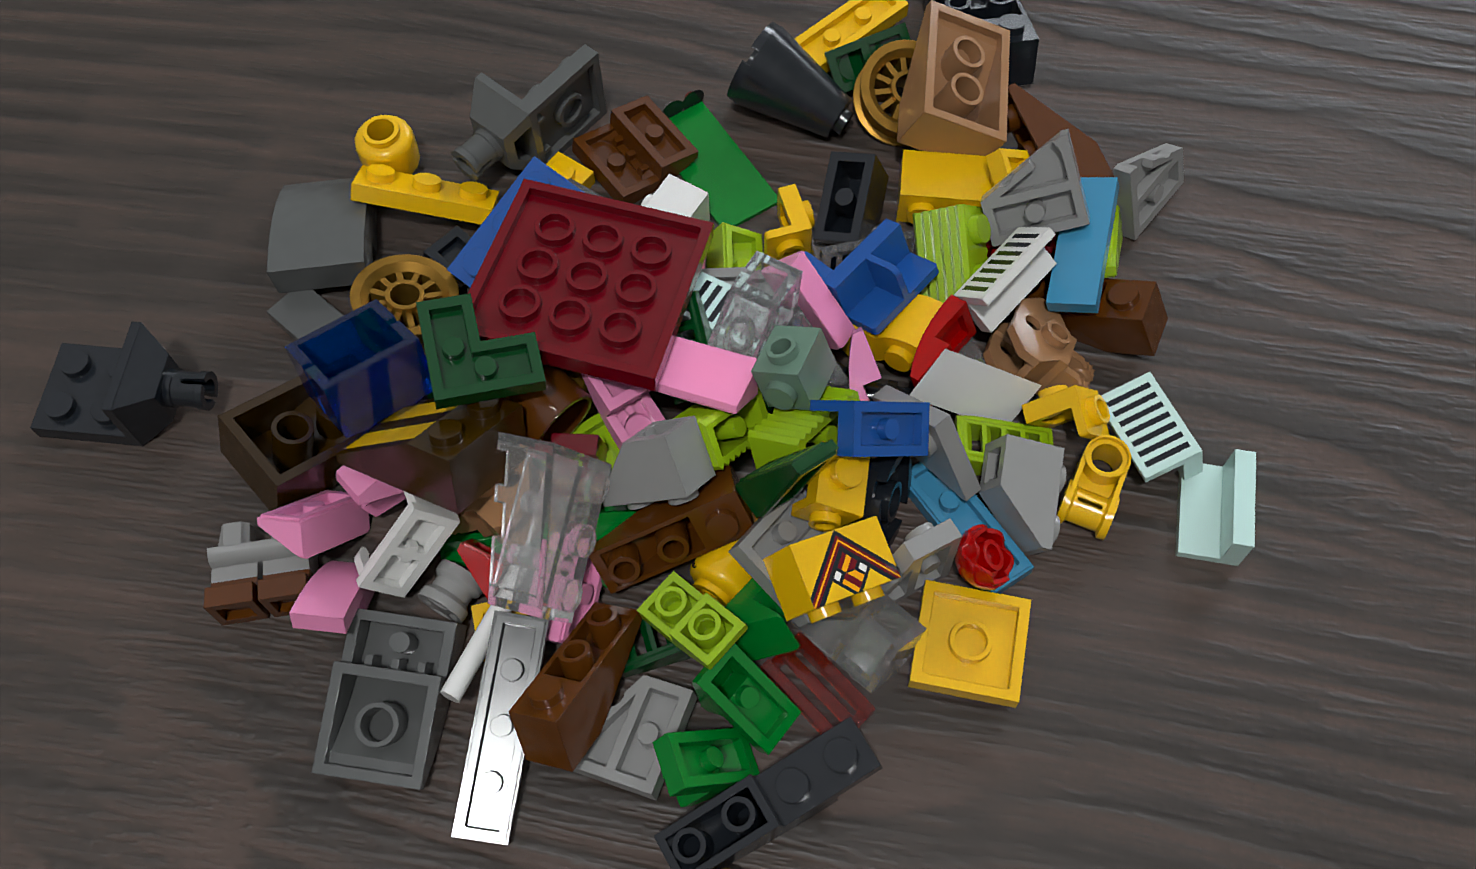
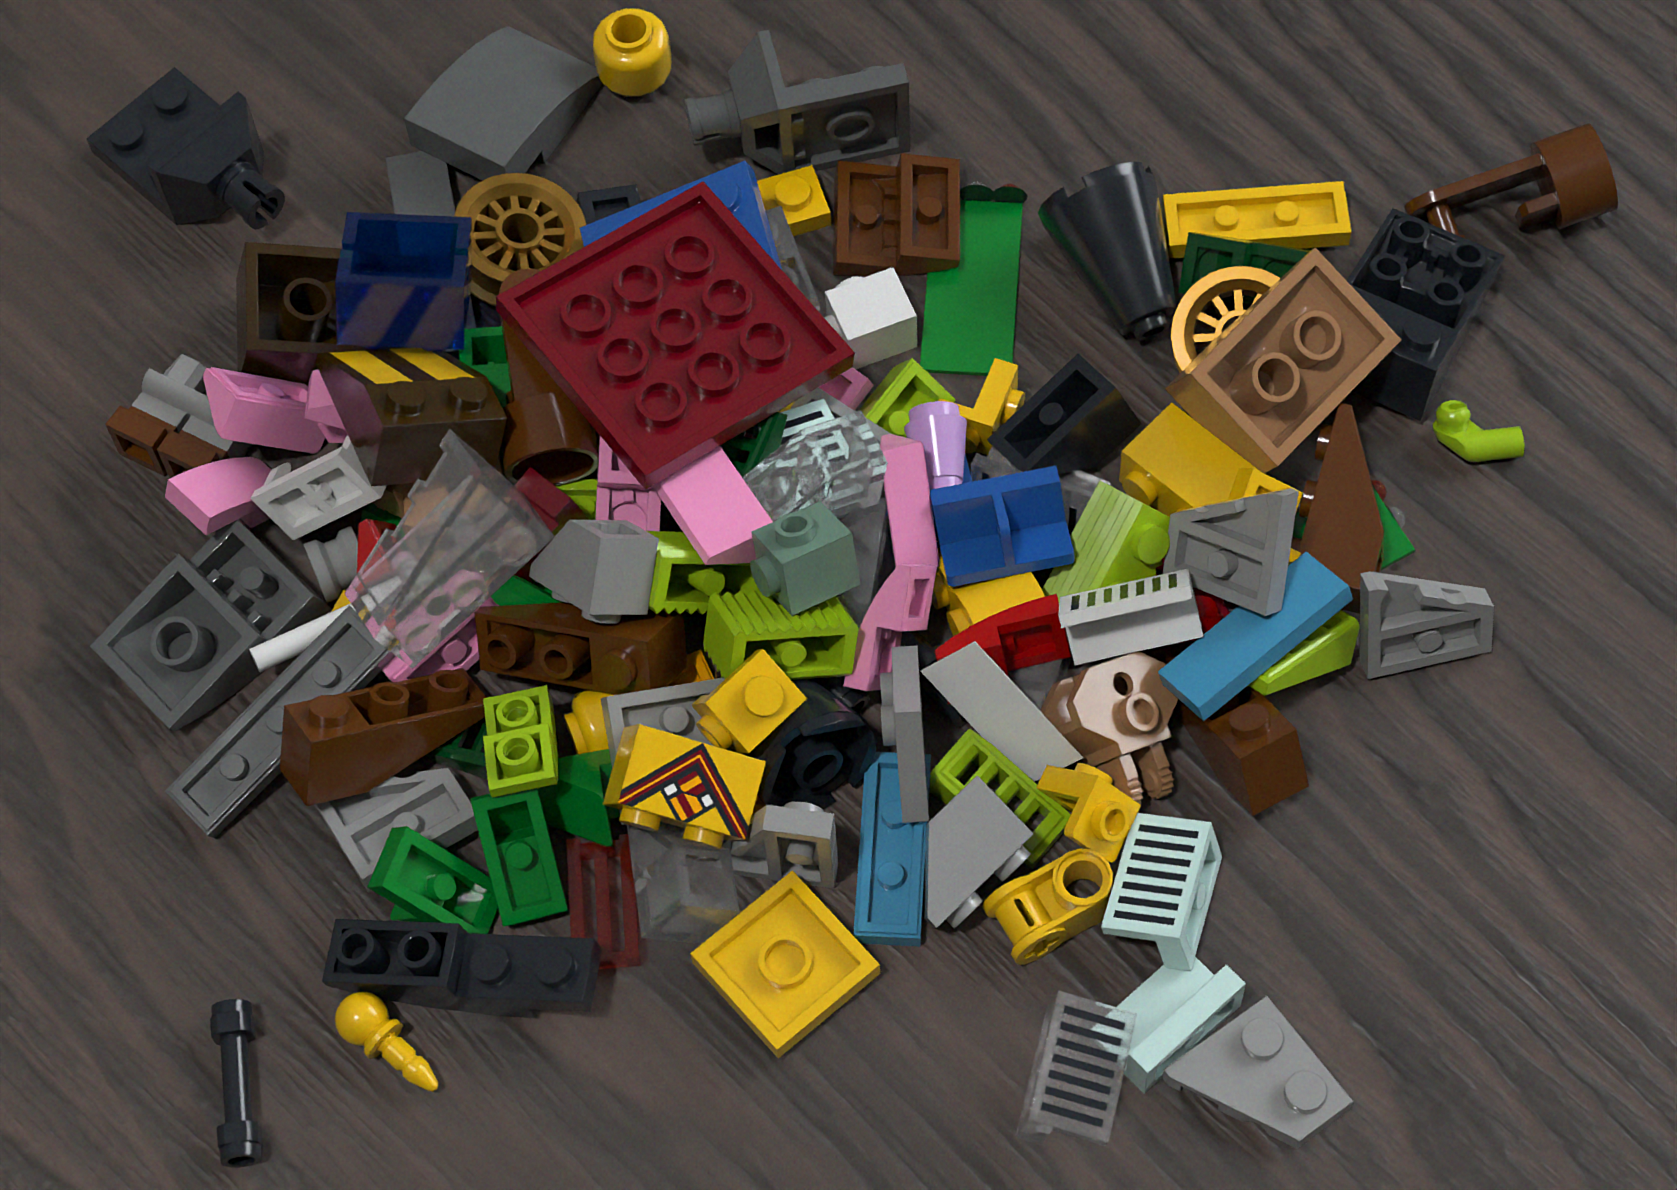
camera: 40 degrees right, 0 degrees up
(423, 194) = (626, 126): yellow plate -> none
(471, 369) = (473, 339): dark green plate -> none
(784, 477) = (693, 661): dark green slope -> none
(792, 239) = (943, 439): none -> lavender cone
(879, 427) = (832, 672): blue panel -> none
(983, 558) = (879, 887): red plate -> none
(1070, 78) = (1470, 441): none -> lime arm
(1202, 580) = (1077, 1070): none -> clear panel
(1301, 502) = (1263, 1076): none -> light grey wing

